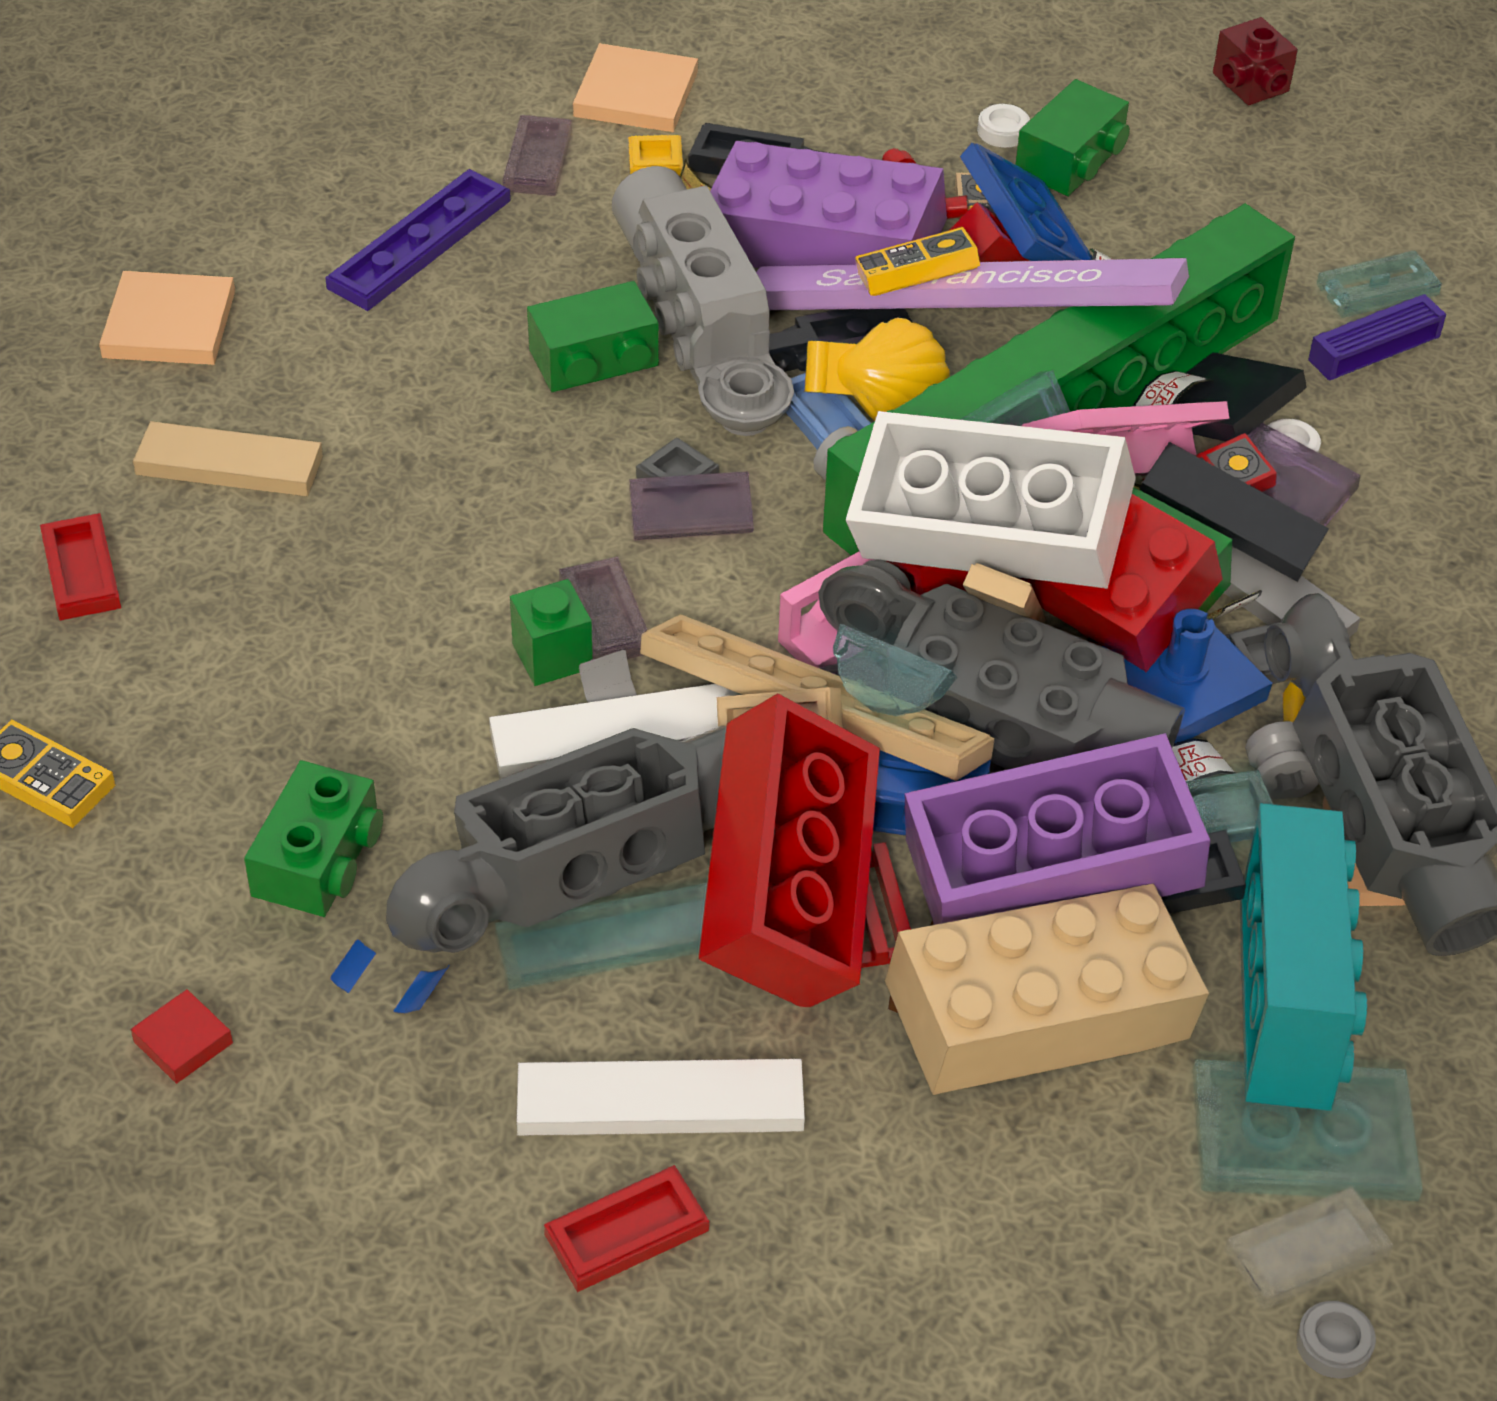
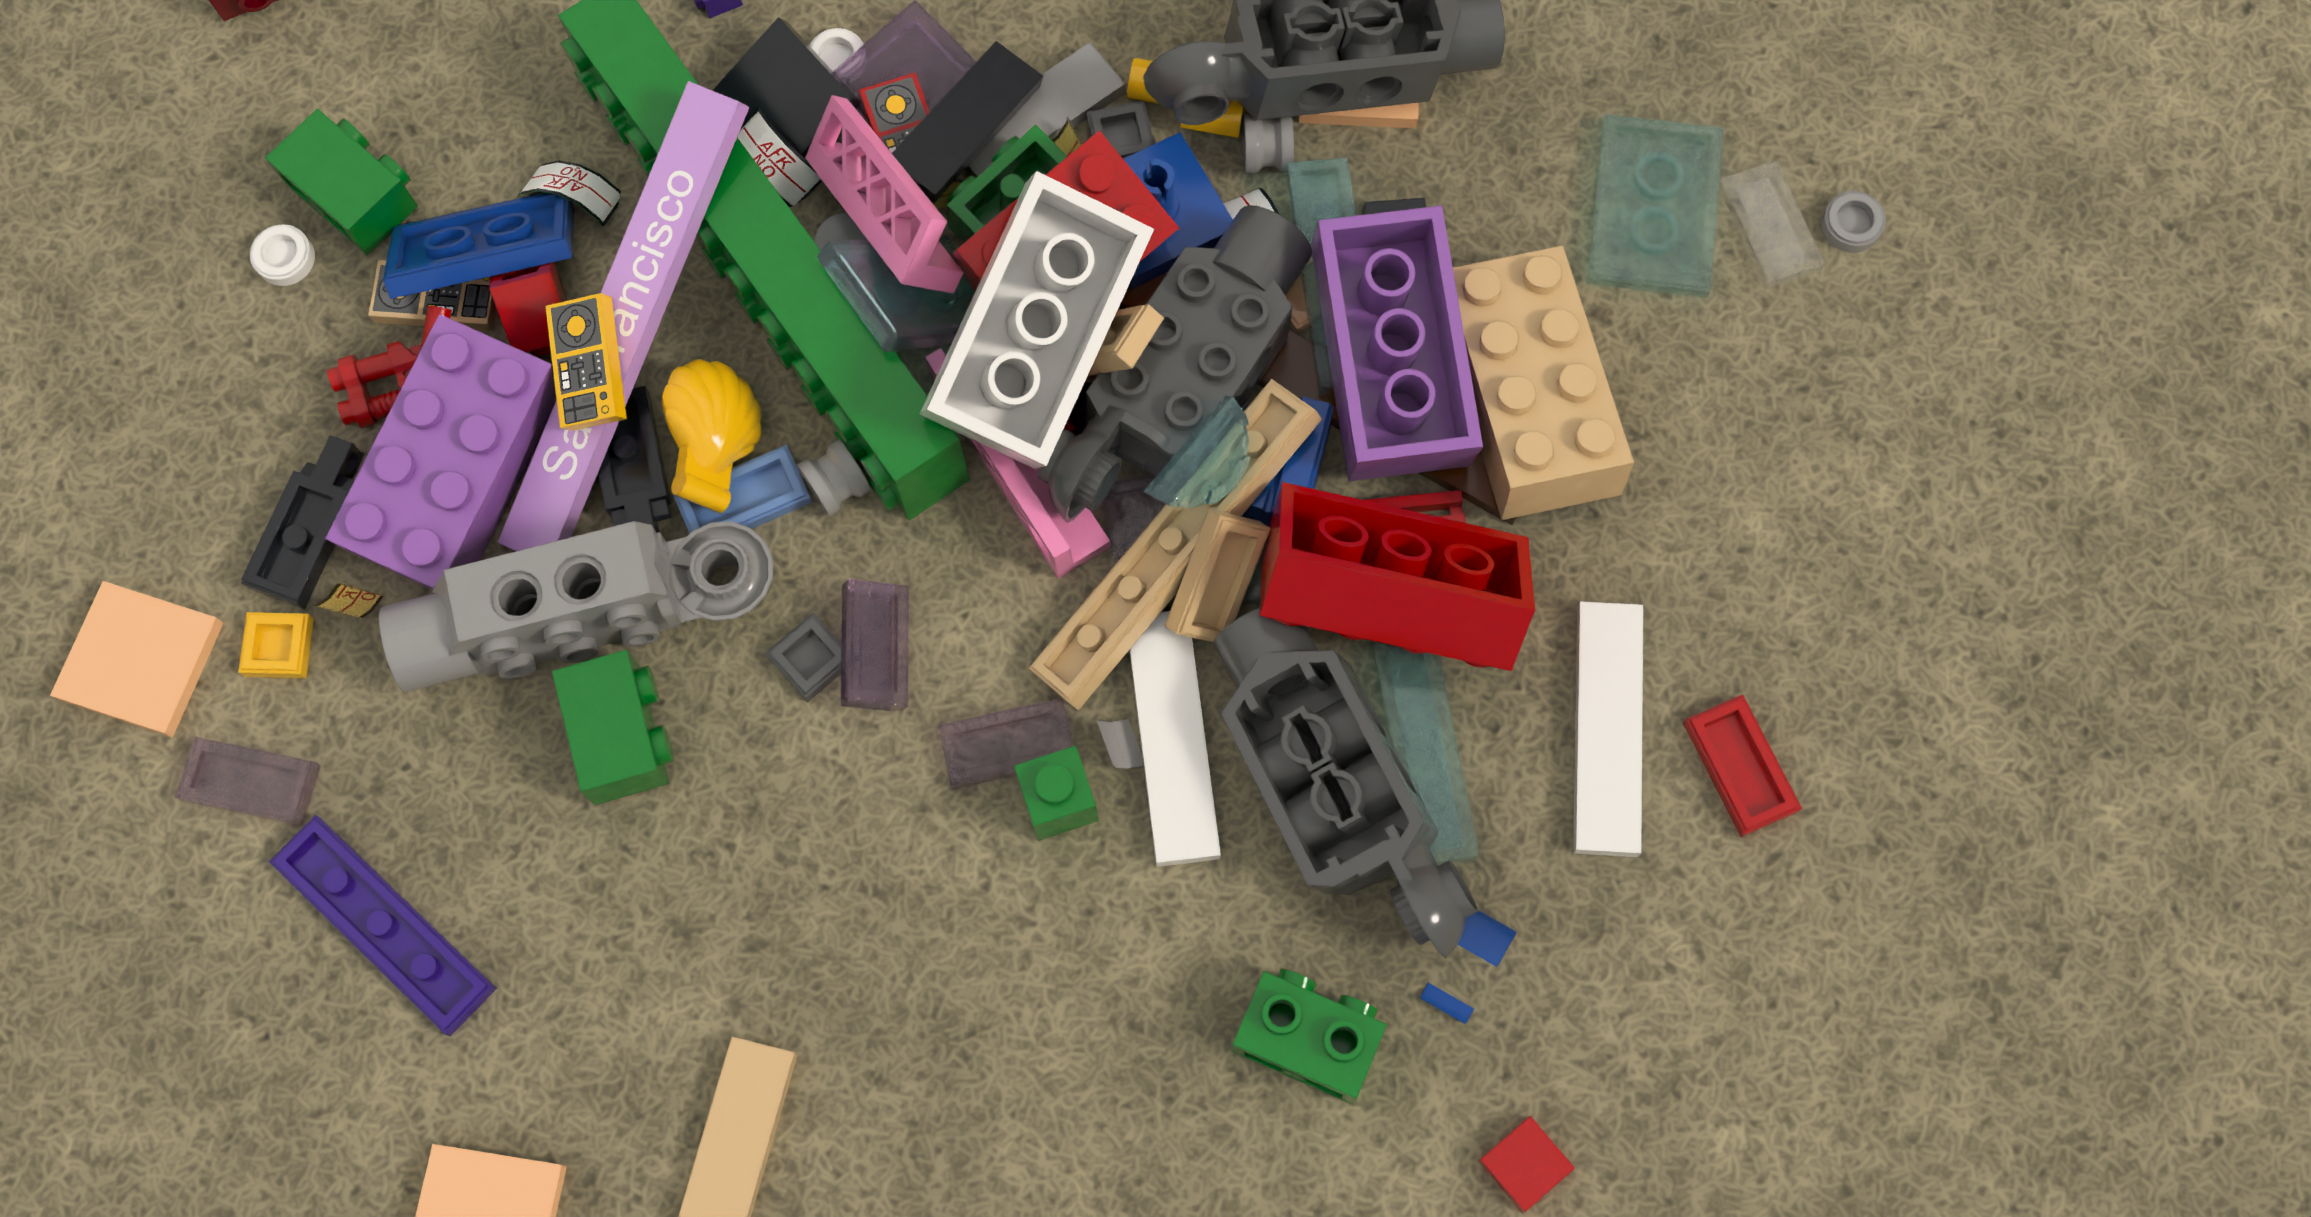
camera: 80 degrees left, 25 degrees up
(1299, 958) = (1527, 165): teal brick -> none

